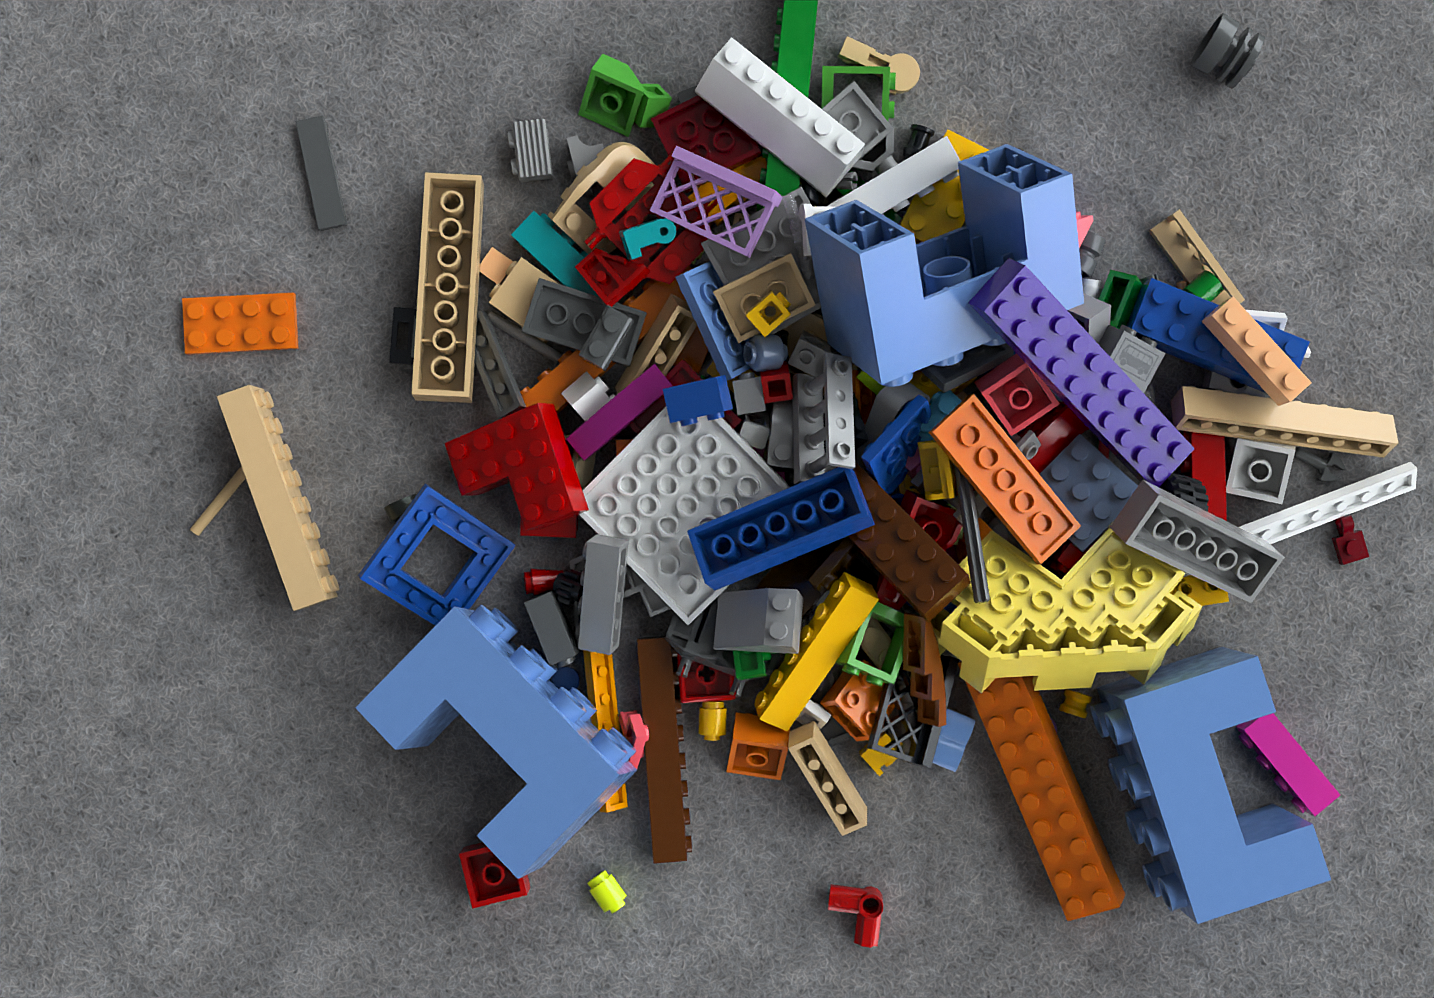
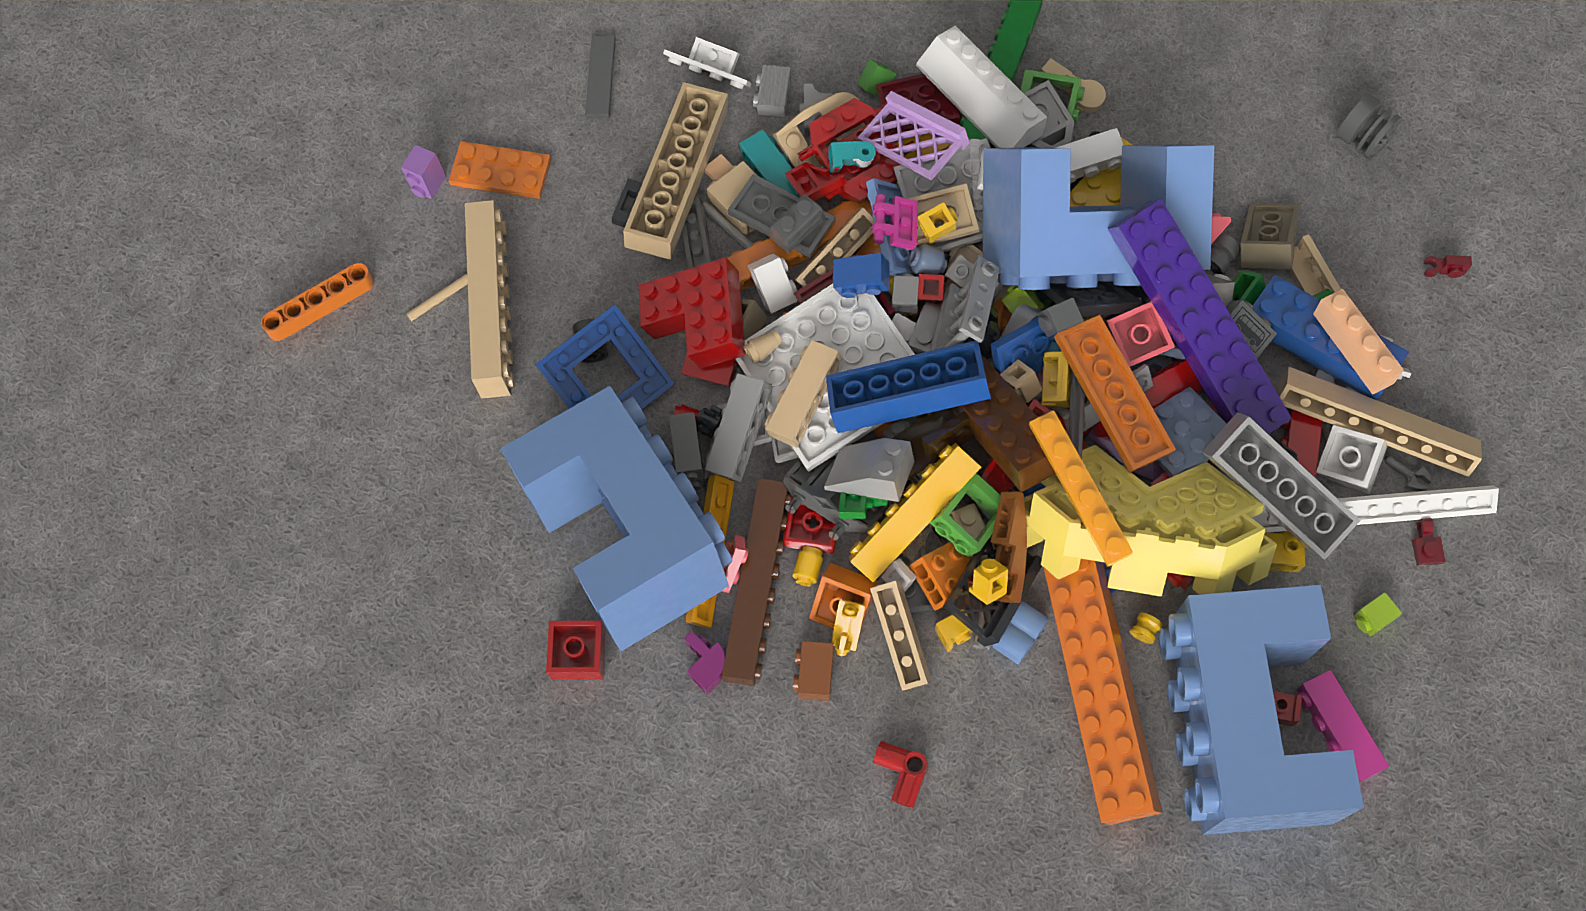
camera: 15 degrees right, 20 degrees down
(73, 544) = (306, 302): none -> orange beam
(152, 357) = (423, 172): none -> medium lavender brick
(449, 125) = (713, 59): none -> white bracket
(605, 499) = (762, 346): none -> tan cone
(607, 892) = (672, 697): neon yellow brick -> none
(612, 95) = (847, 64): bright green slope -> none
(618, 412) = (789, 284): magenta slope -> none
(638, 851) = (709, 668): none -> magenta brick
(665, 547) = (803, 393): none -> tan brick
(729, 322) = (902, 224): none -> dark pink plate
(747, 830) = (815, 670): none -> dark orange brick
(769, 779) = (847, 626): none -> yellow hinge
(899, 480) = (1022, 380): none -> tan brick
(911, 714) = (988, 576): none -> yellow brick
(931, 410) = (1059, 317): none -> dark grey brick
(994, 619) = (1080, 488): none -> light orange plate
(1135, 214) = (1269, 236): none -> dark tan slope
(1235, 753) = (1291, 713): none -> red brick
(1307, 633) = (1377, 615): none -> lime brick
(1340, 207) = (1450, 265): none -> dark red plate

